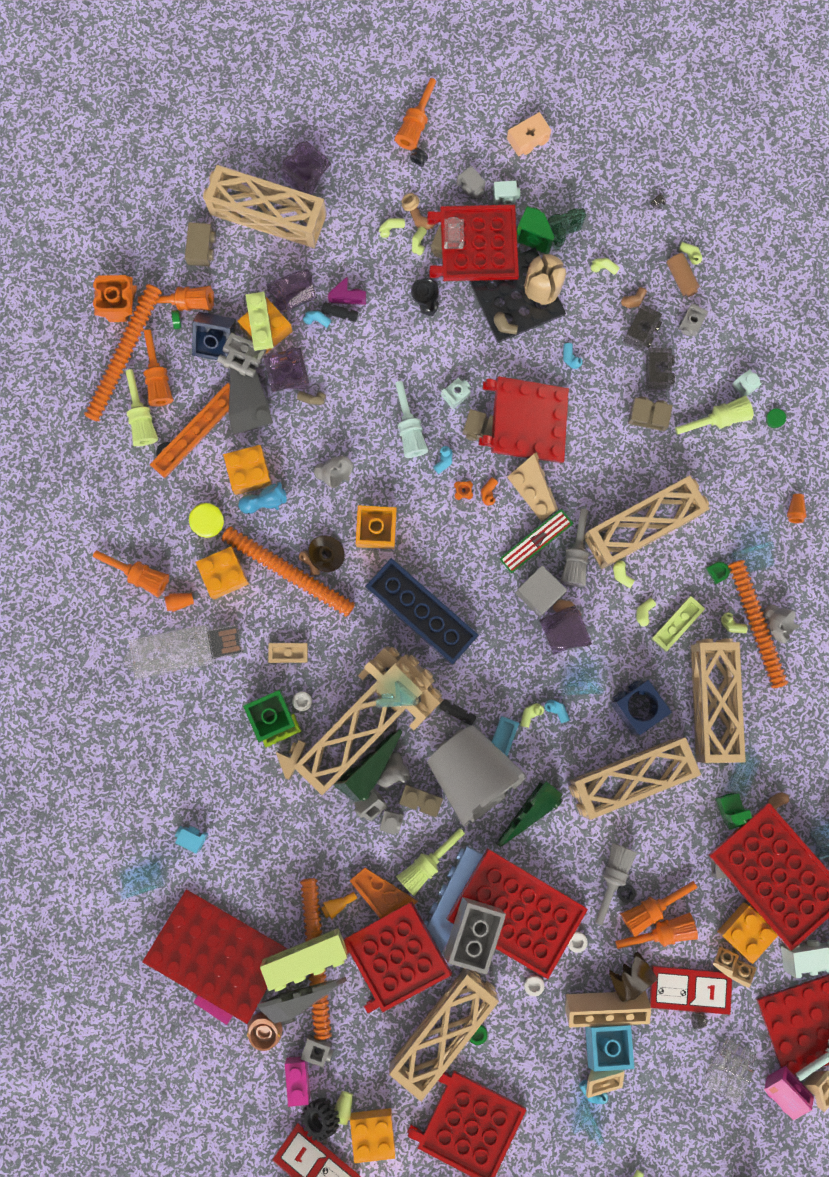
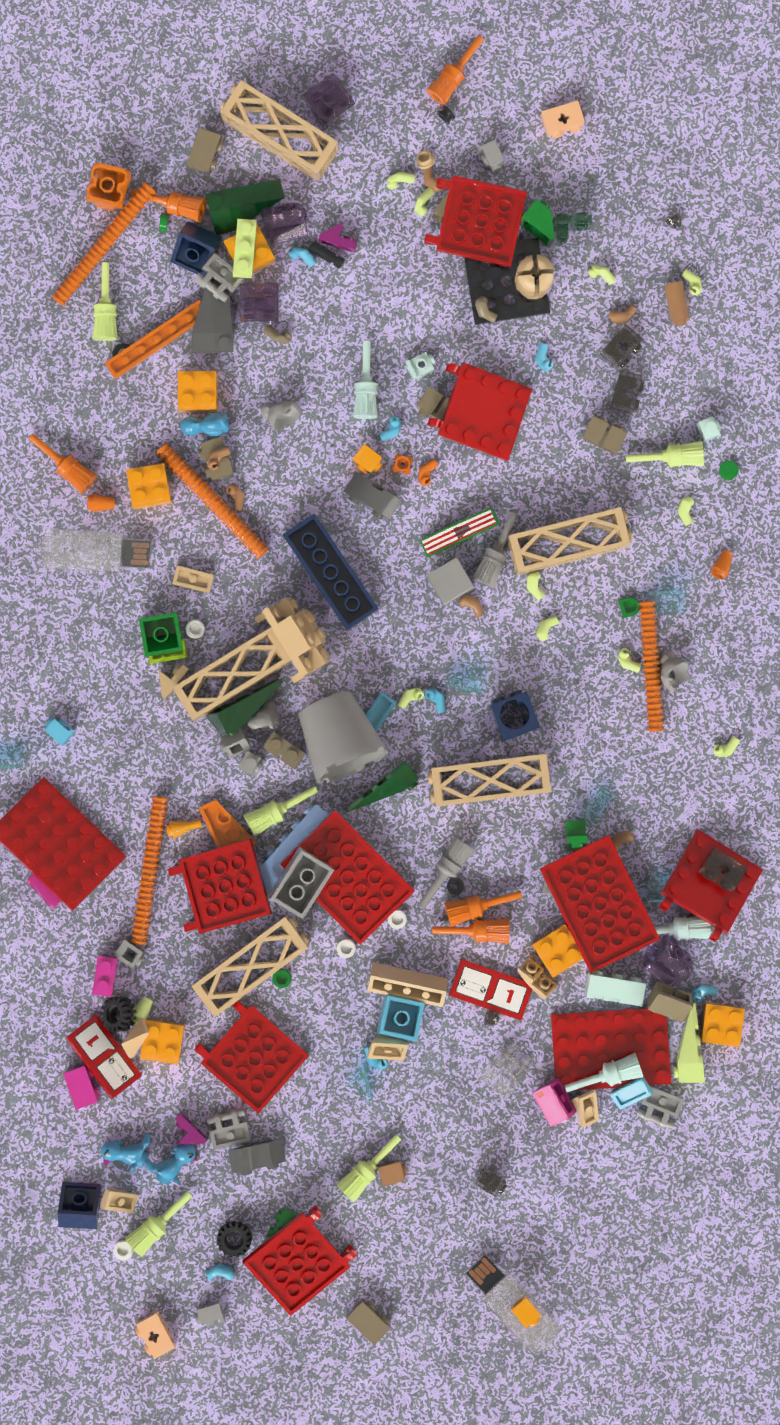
camera: 15 degrees right, 5 degrees up
(156, 377) = (130, 275): orange piece -> none
(206, 520) = (145, 431): neon yellow piece -> none
(249, 279) = (242, 203): none -> dark green wedge
(263, 1033) = (86, 924): nougat piece -> none
(280, 527) = (215, 457): none -> medium nougat arm
(282, 529) = (225, 468): none -> dark tan piece
(290, 1004) = (120, 905): dark grey wedge -> none
(303, 960) = (138, 865): yellowish green brick -> none
(331, 548) = (260, 490): dark brown dish -> none
(344, 1141) = (135, 1038): none -> tan slope
(376, 527) = (307, 479): light orange brick -> none
(403, 697) = (290, 648): clear light blue slope -> none
(426, 293) = (416, 259): black hair -> none
(429, 494) = (367, 460): none -> light orange brick
(448, 529) = (372, 496): none -> dark grey brick
(453, 233) = (457, 207): clear brick -> none
(457, 712) = (340, 676): black axle -> none
(505, 192) = (523, 174): light aqua brick -> none
(532, 486) = (470, 480): tan wing -> none
(565, 630) = (462, 625): clear purple piece -> none
(634, 979) = (439, 962): dark brown piece -> none
(678, 623) = (574, 646): yellowish green plate -> none
(693, 313) = (680, 348): light grey brick -> none
(730, 654) = (602, 680): tan piece -> none
(745, 465) = (684, 508): none -> yellowish green arm

